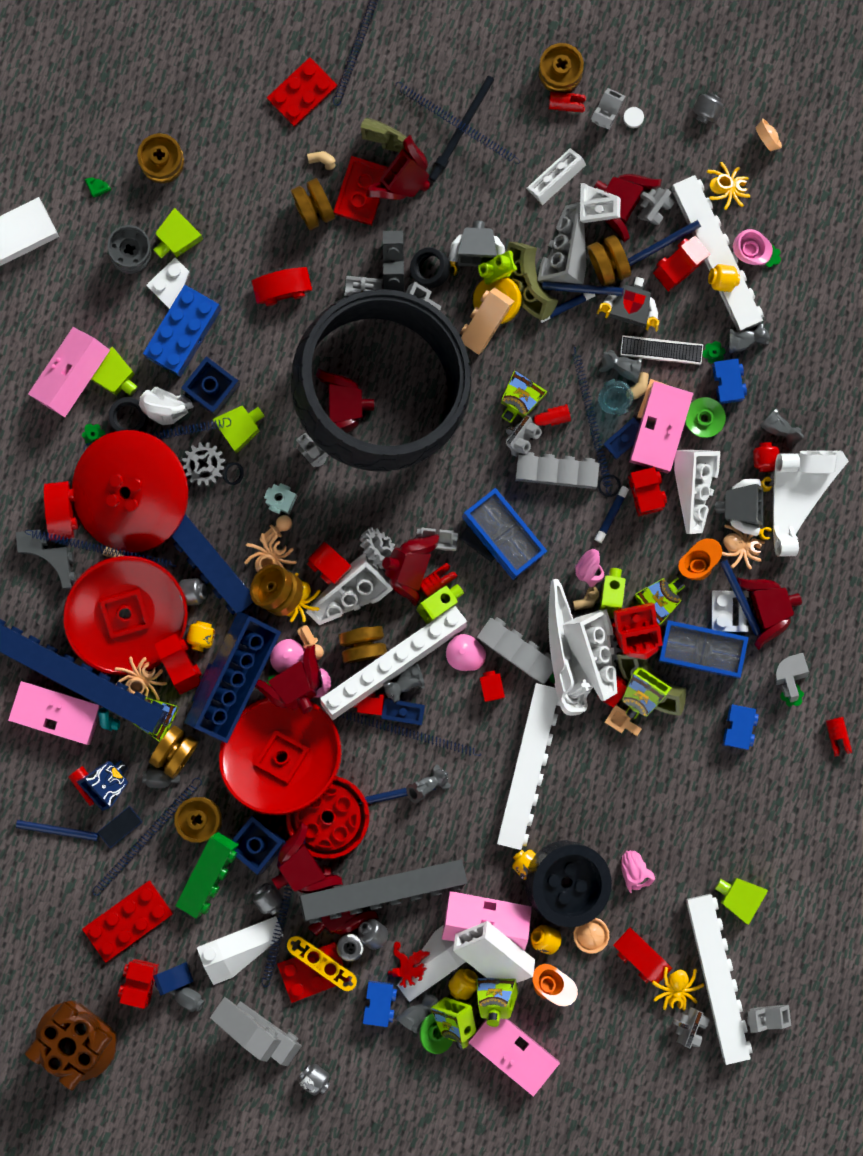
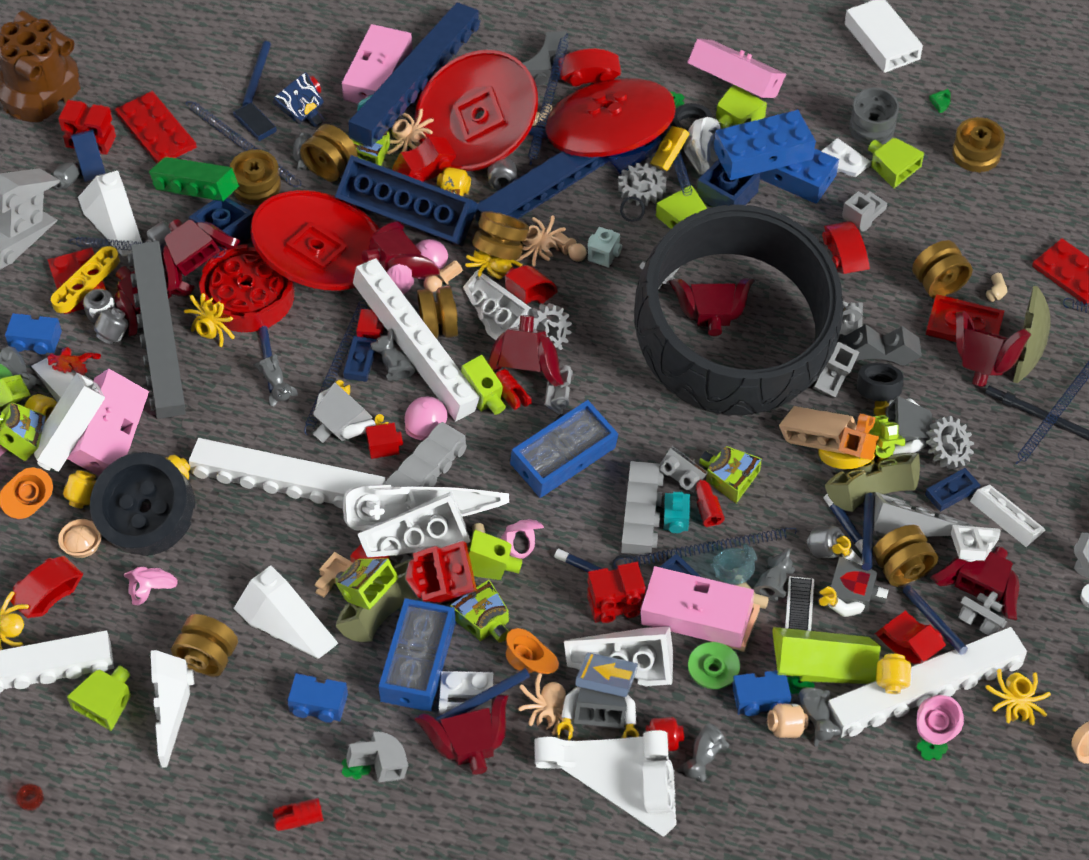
camera: 85 degrees right, 30 degrees down
(172, 437) = (669, 148): none -> yellow plate
(180, 349) = (764, 144): none -> blue brick
(239, 266) = (863, 209): none -> light grey brick
(369, 846) = (208, 322): none -> yellow animal
(467, 723) = (341, 414): none -> light grey torso
(494, 215) = (949, 442): none -> light grey gear
(511, 287) = (859, 441): none -> orange brick
(535, 217) = (952, 489): none -> dark blue plate
(562, 442) = (676, 512): none -> teal brick
(590, 323) = (822, 540): none -> flat silver head
(659, 764) = (279, 610): none -> white wedge
(696, 329) = (825, 656): none -> lime slope
(704, 820) = (205, 644): none -> pearl gold wheel
(722, 499) = (606, 674): none -> sand blue tile
(735, 843) = (172, 688): none -> white wedge
(753, 363) = (787, 720): none -> light nougat head
(833, 945) = (29, 789): none -> clear red plate

